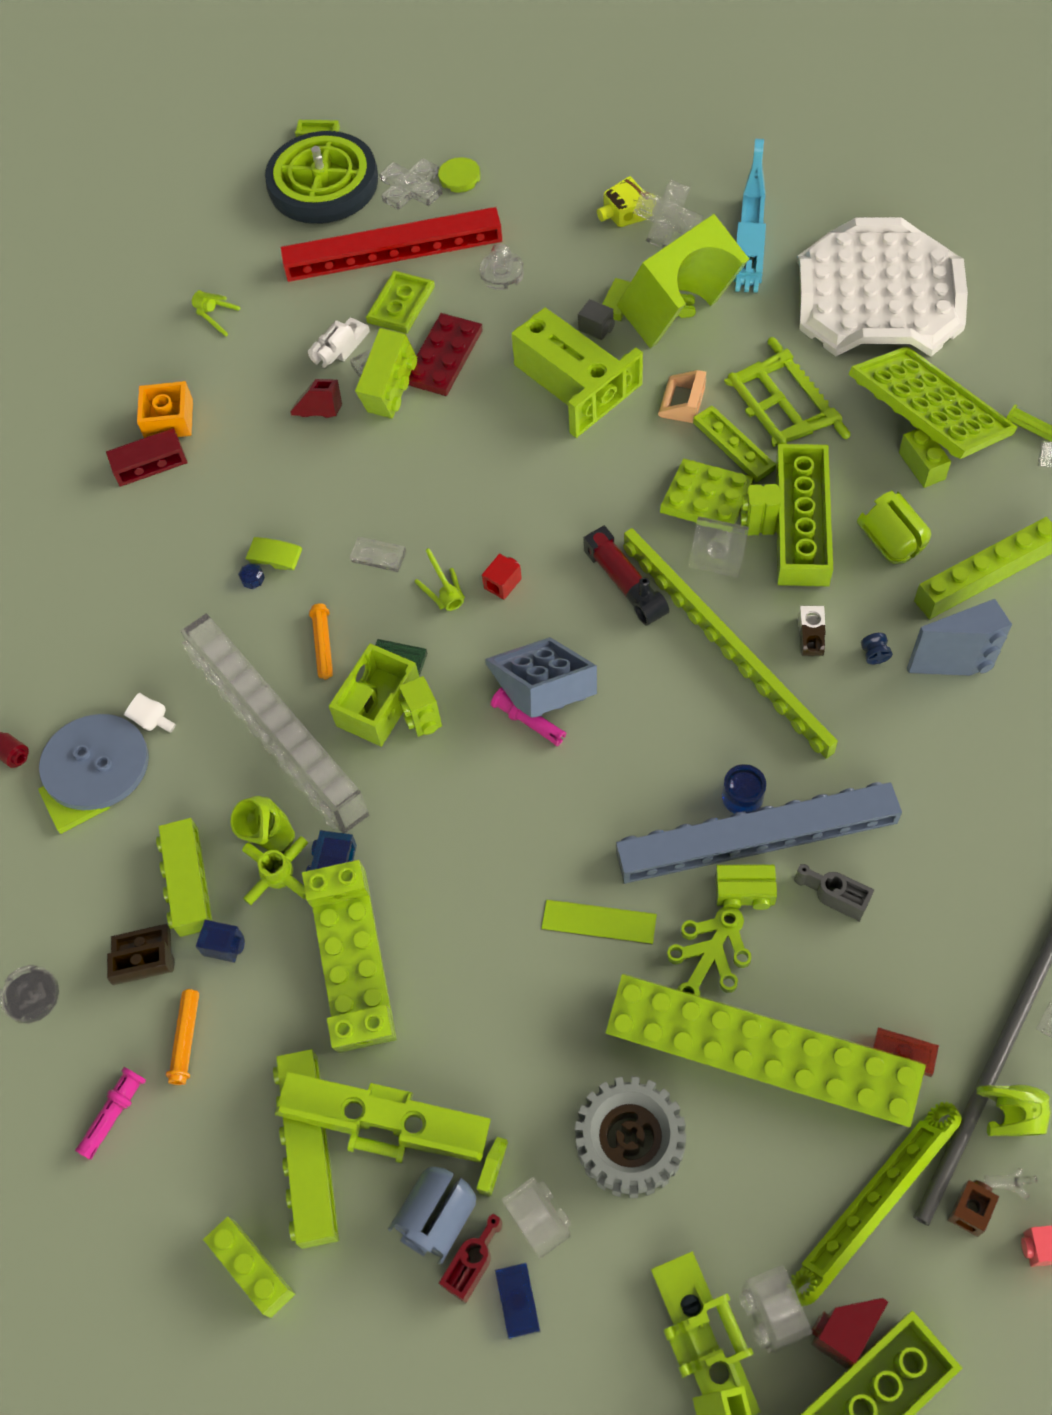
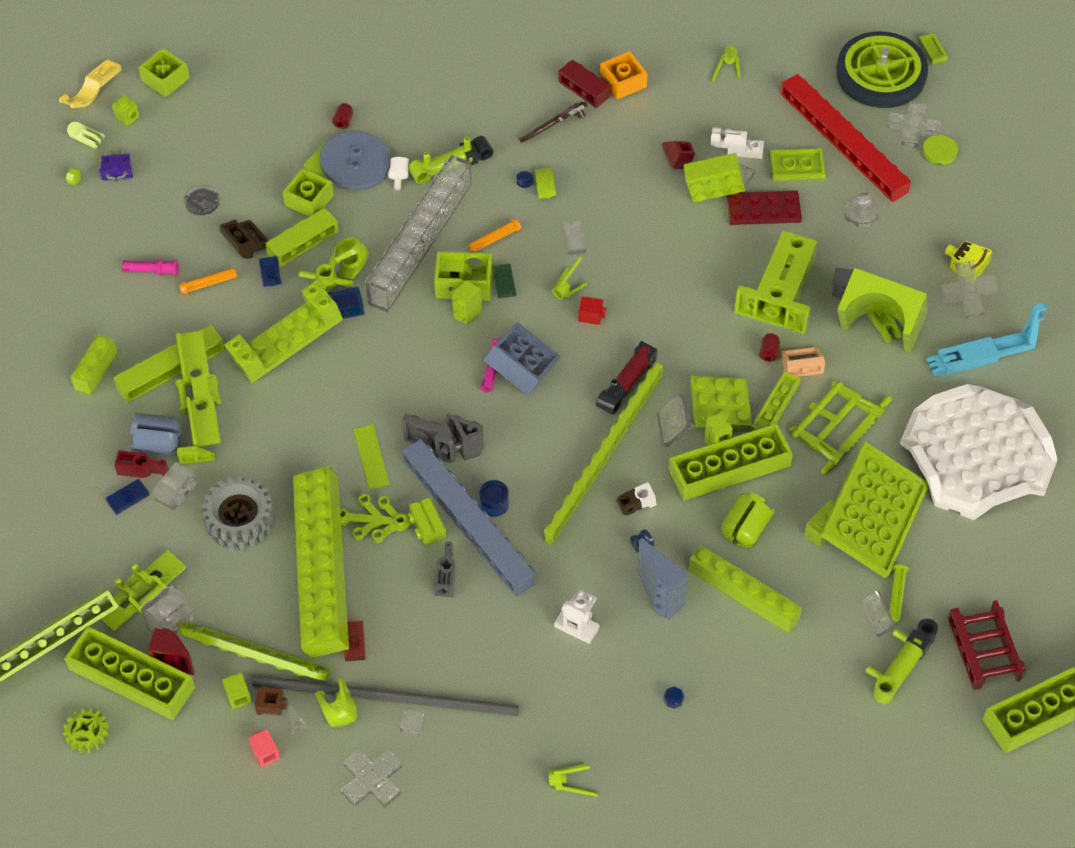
camera: 60 degrees right, 5 degrees down
(117, 840) = (308, 193): none -> lime brick
(170, 620) = (467, 150): none -> lime piece
(179, 486) = (575, 108): none -> dark brown piece
(631, 809) = (446, 438): none -> dark grey piece
(651, 419) = (769, 347): none -> dark red brick
(937, 1251) = (236, 690): none -> lime brick
(977, 757) = (578, 611): none -> white tile

